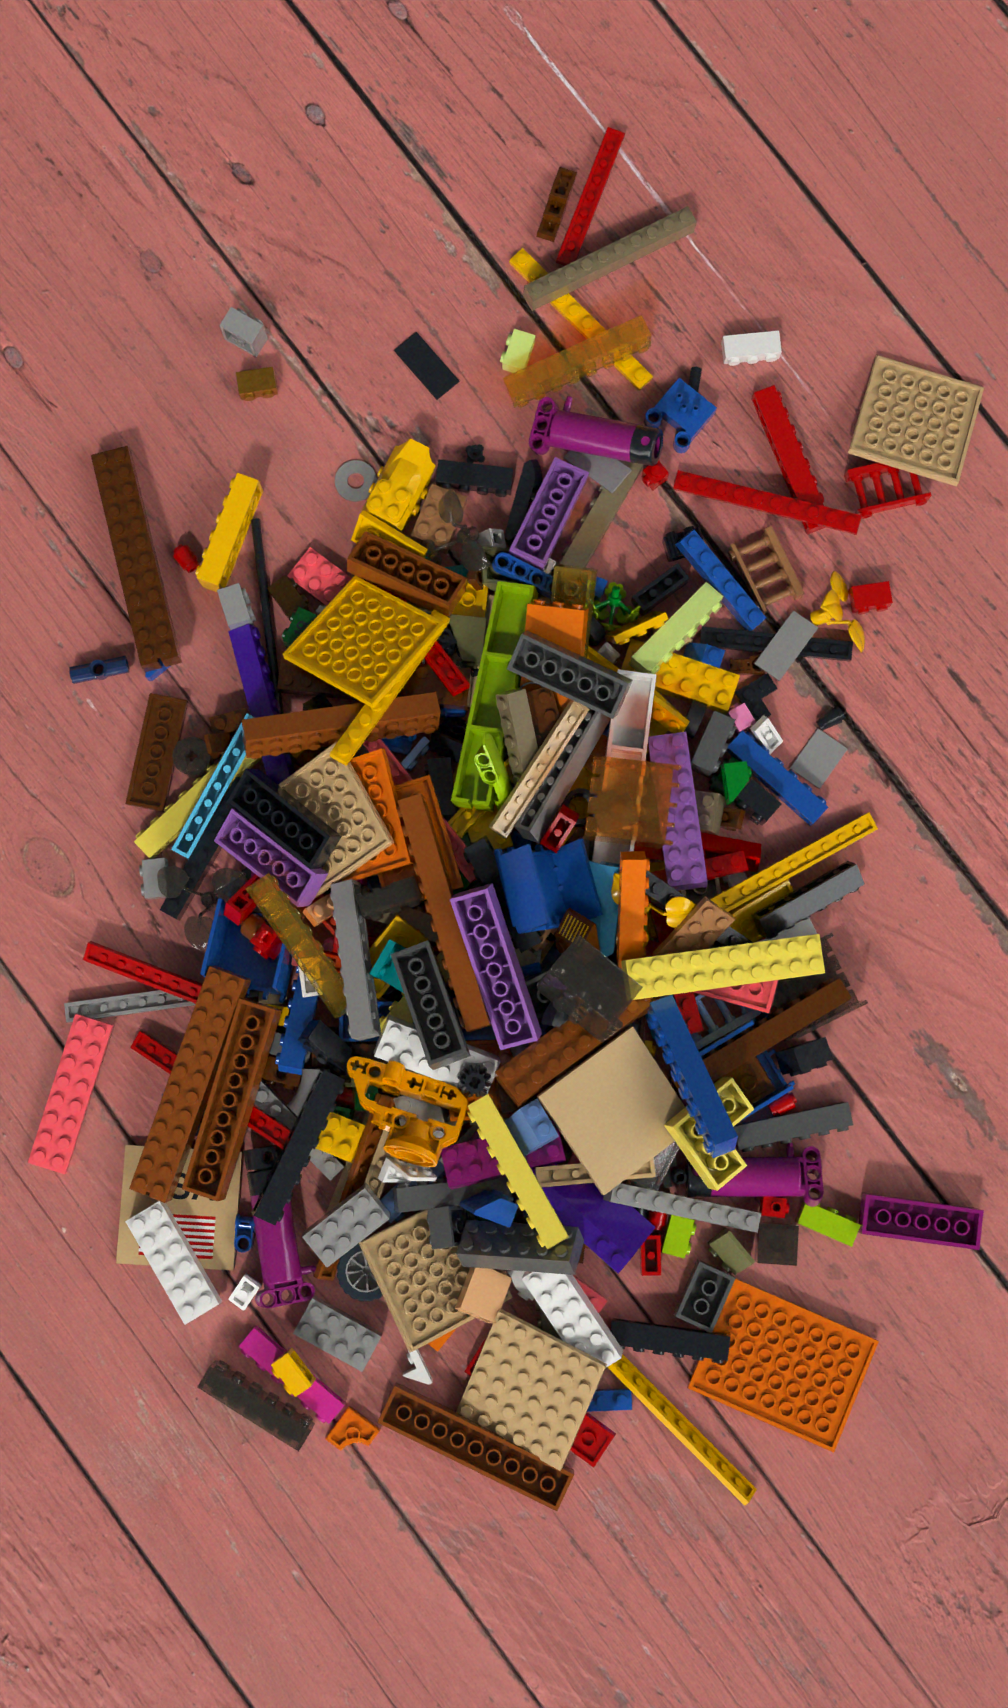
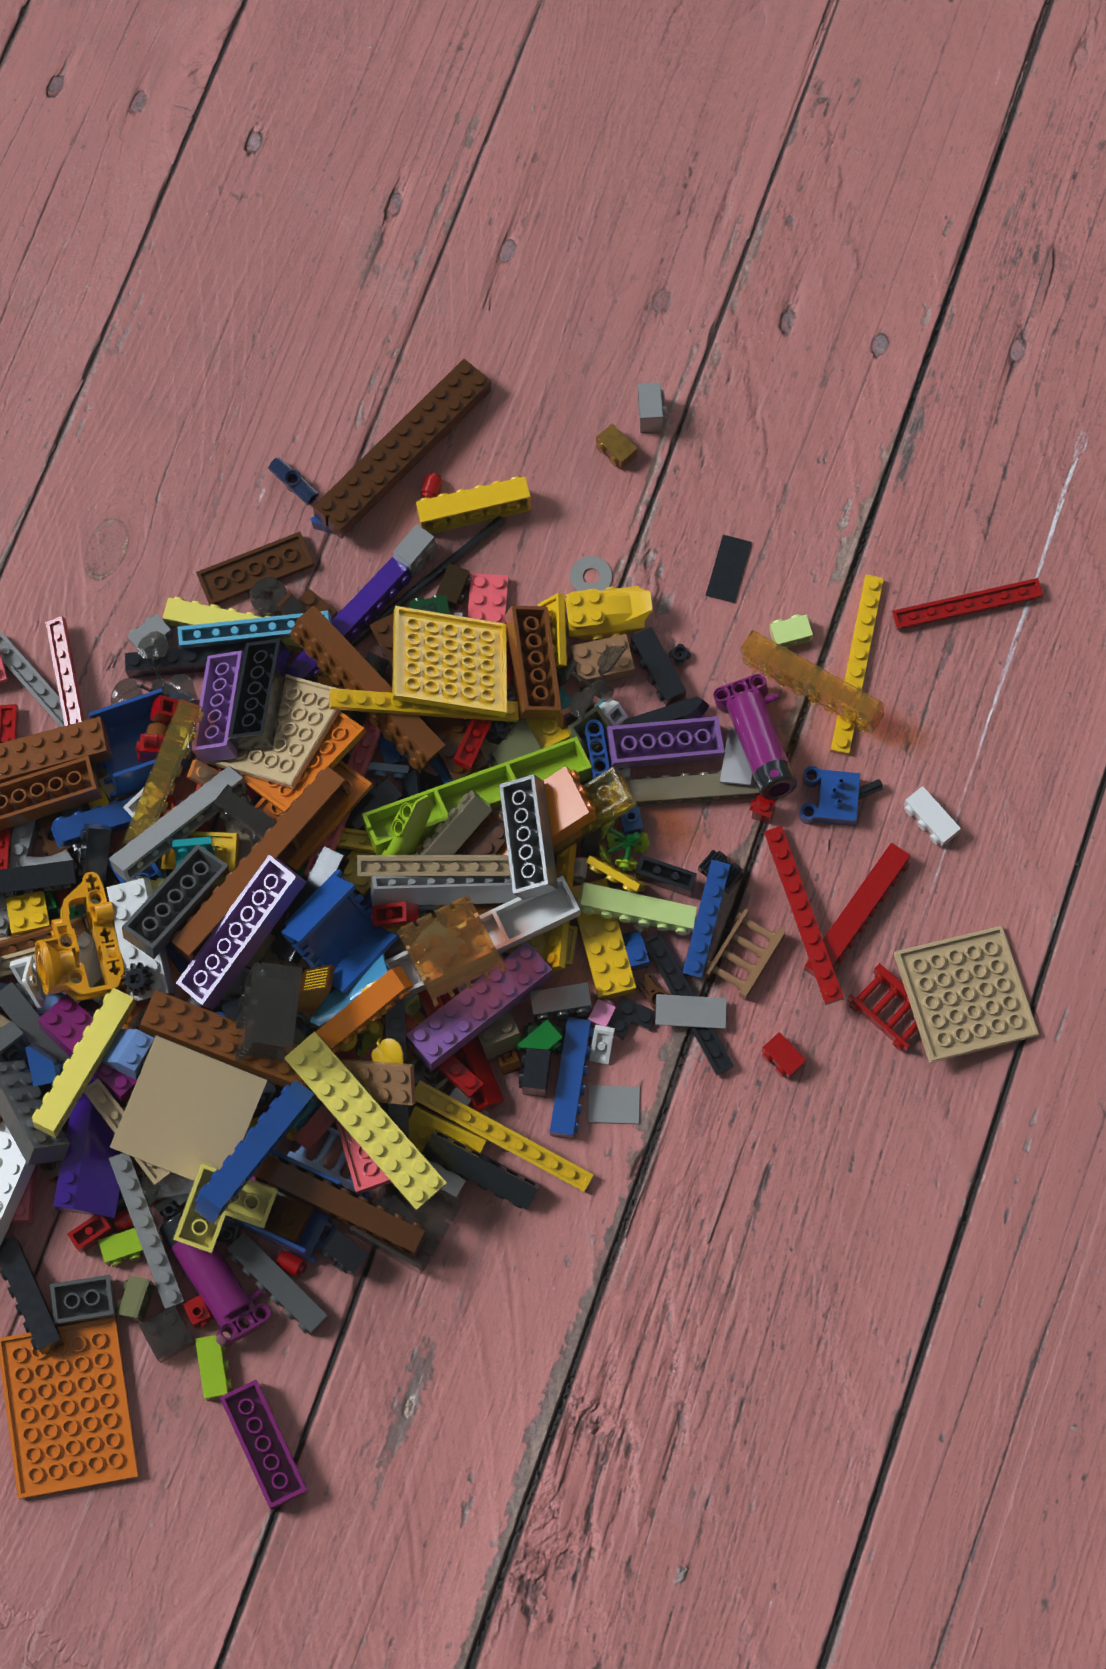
camera: 60 degrees right, 10 degrees down
(556, 204) = (941, 581): reddish brown slope -> none
(609, 258) = (922, 651): dark tan brick -> none
(695, 717) = (573, 974): black tyre -> none
(831, 609) = (739, 1023): yellow plant -> none
(831, 718) = (655, 1091): black cone -> none

